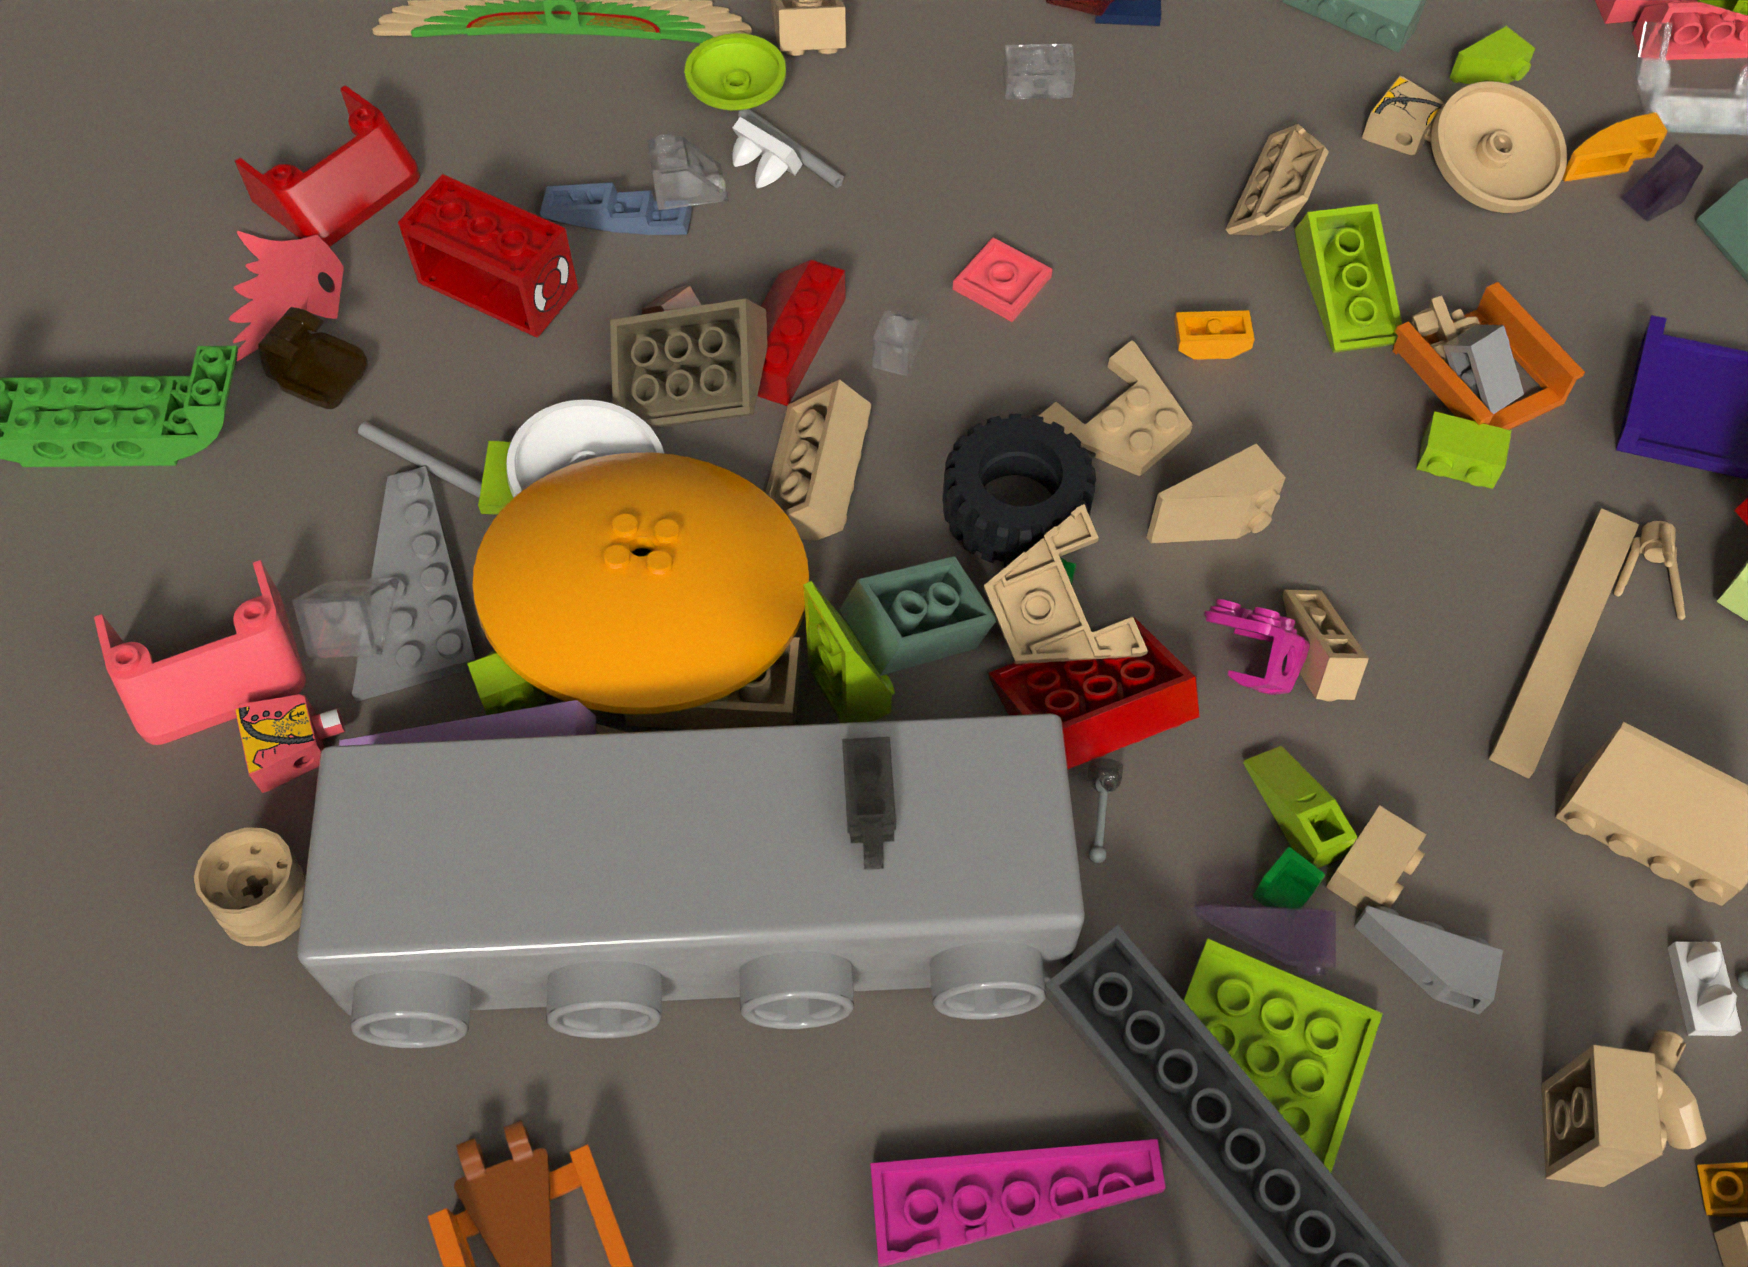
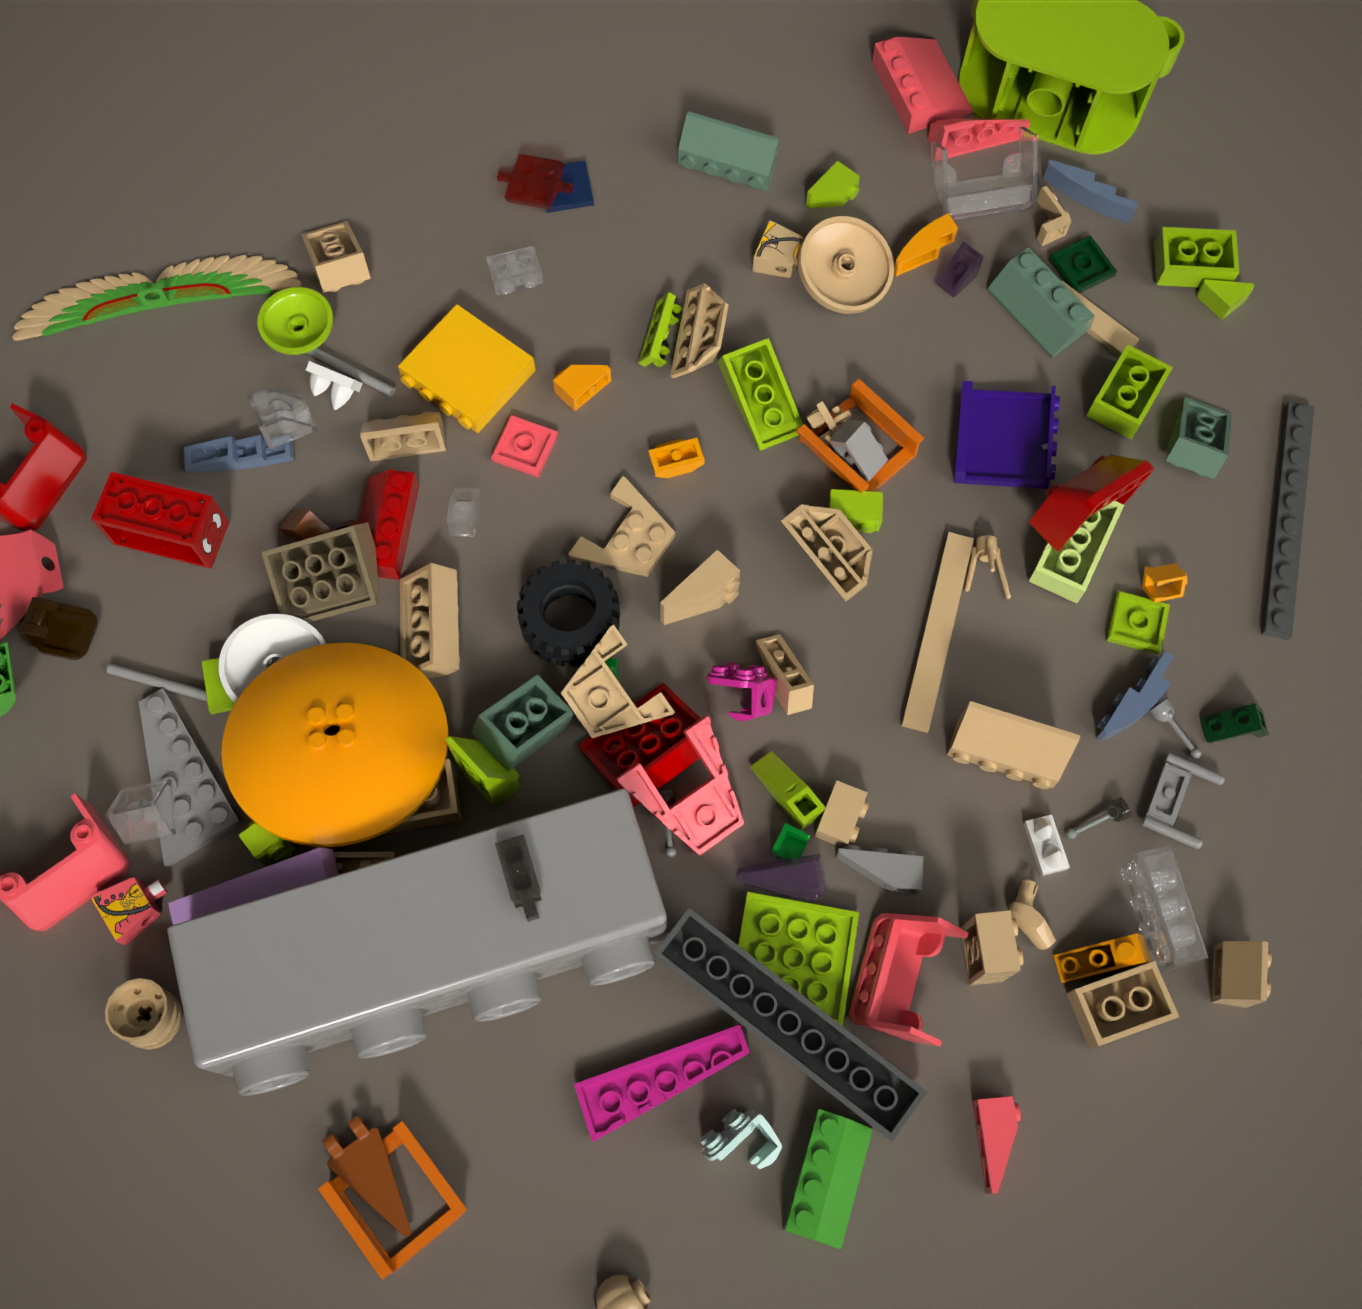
camera: 15 degrees left, 10 degrees up
(840, 232) = (403, 436): none -> tan slope
(946, 171) = (466, 369): none -> yellow brick
(1098, 217) = (580, 383): none -> light orange slope
(1163, 807) = (706, 812): none -> coral wing
(1229, 164) = (659, 330): none -> lime plate
(1422, 1116) = (891, 973): none -> coral windscreen
(1423, 484) = (832, 546): none -> tan wedge

